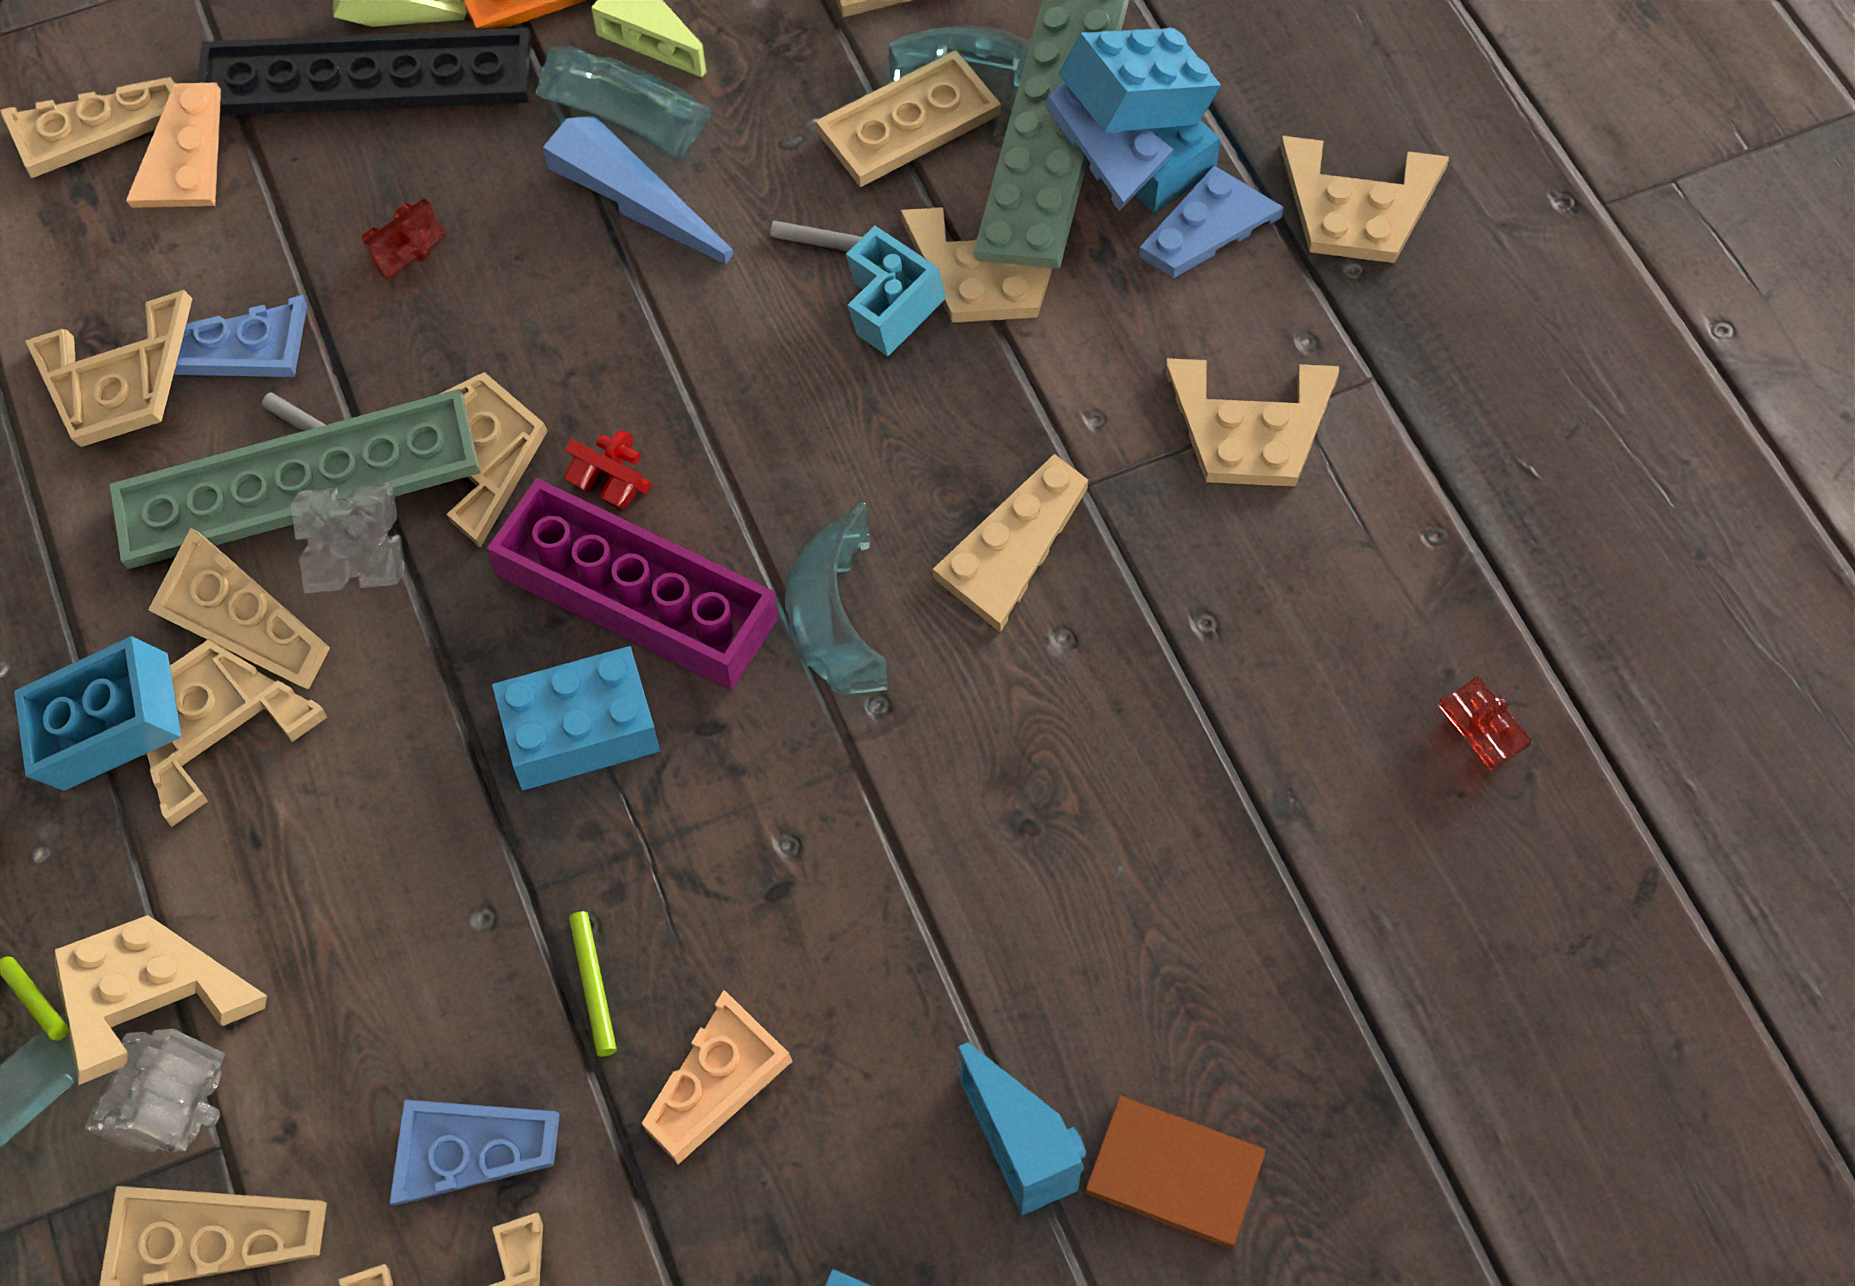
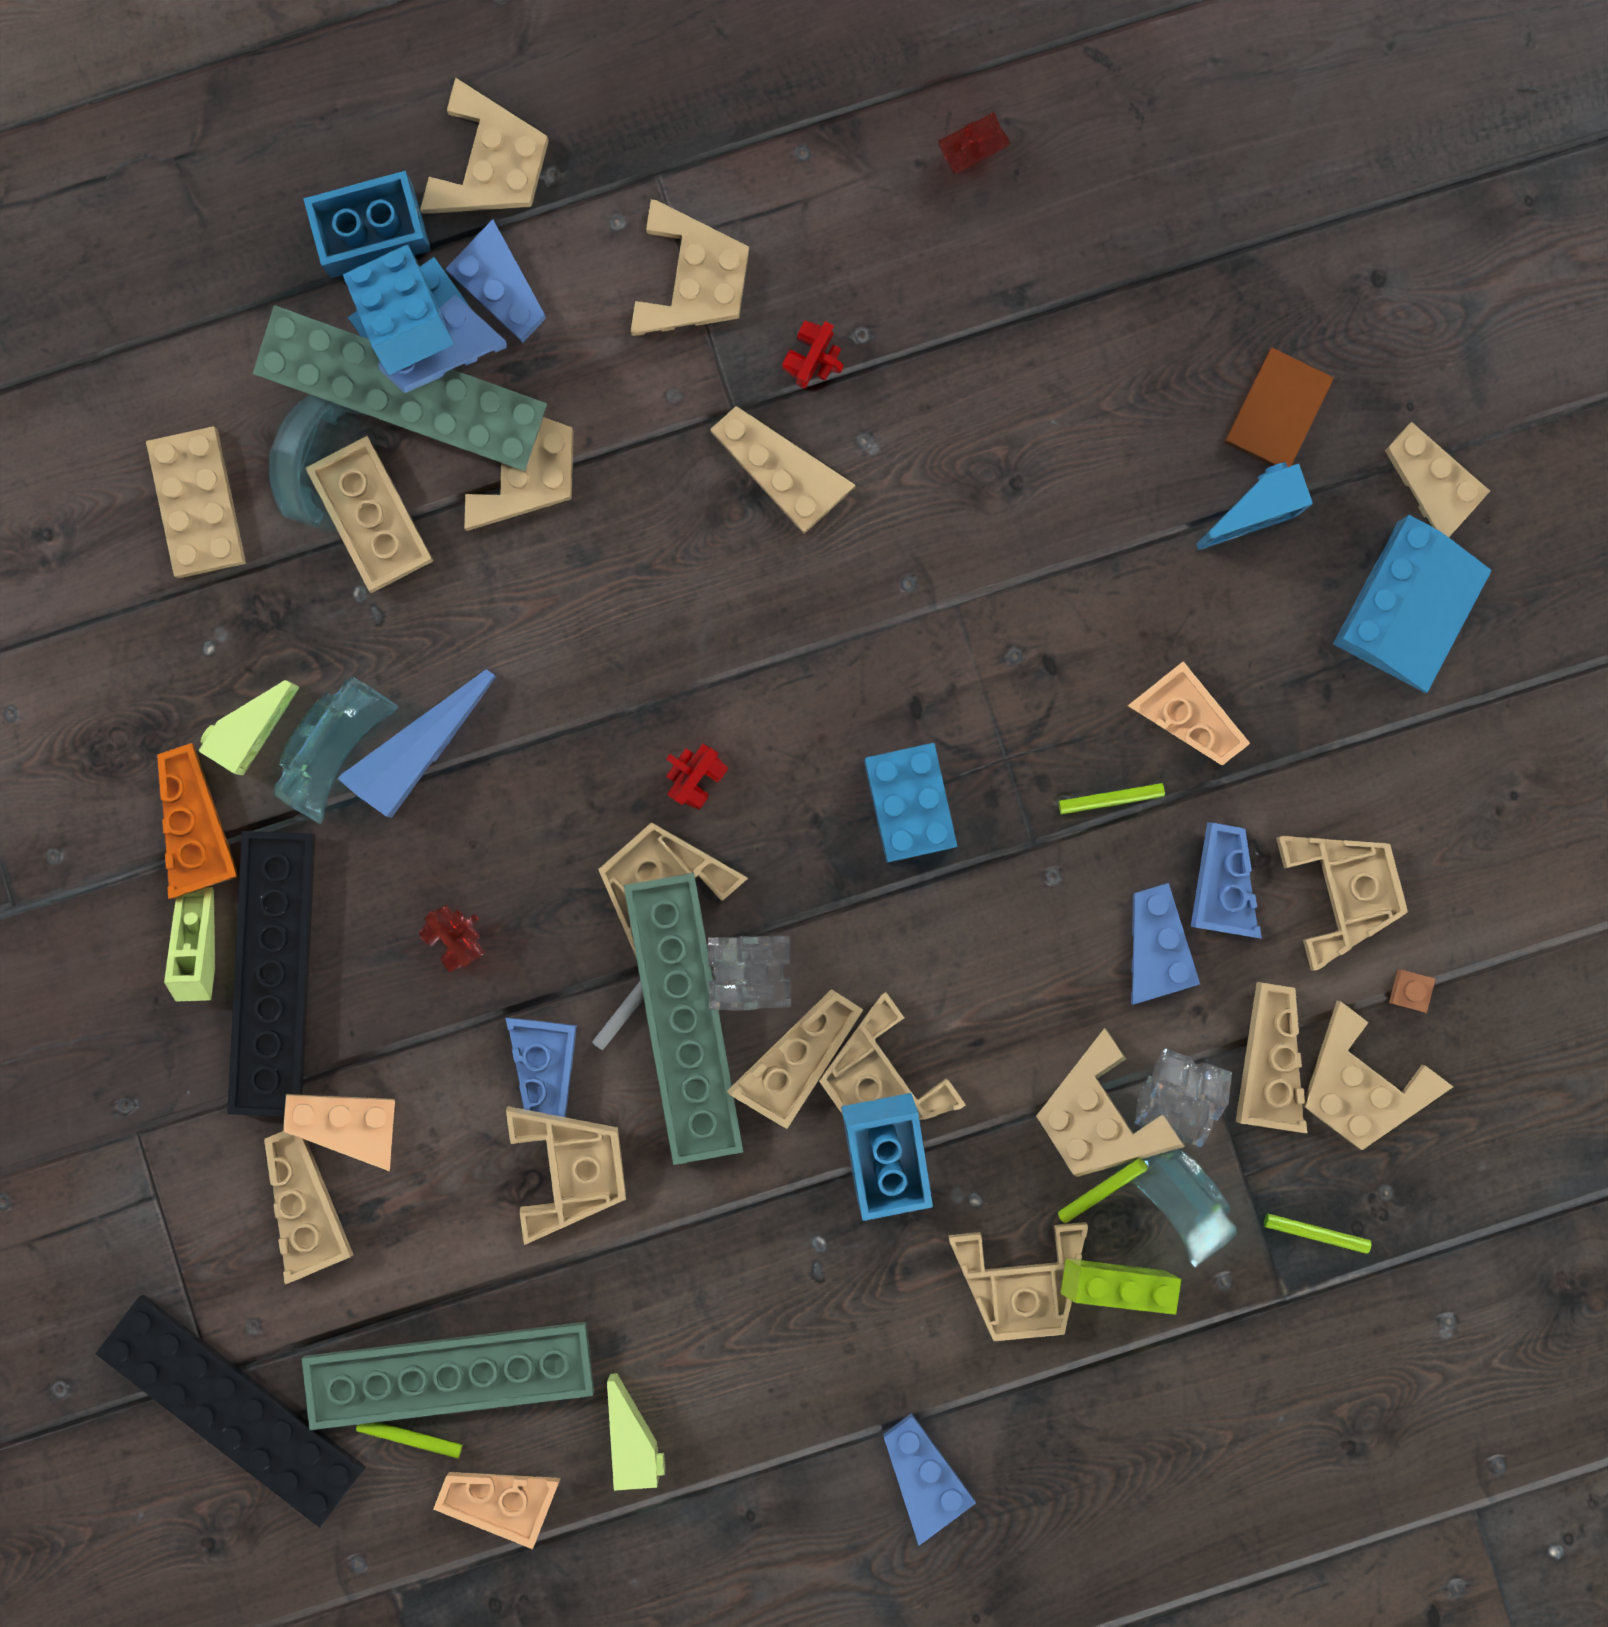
camera: 85 degrees left, 25 degrees up
(381, 1064) = (1160, 947): none -> medium blue wing
(634, 583) = (803, 755): magenta brick -> none
(813, 236) = (485, 586): light grey bar -> none
(816, 613) = (827, 621): clear light blue windscreen -> none
(896, 290) = (547, 531): medium azure brick -> none
(1164, 563) = (818, 339): none -> red hips
(1260, 80) = (366, 222): none -> dark azure brick

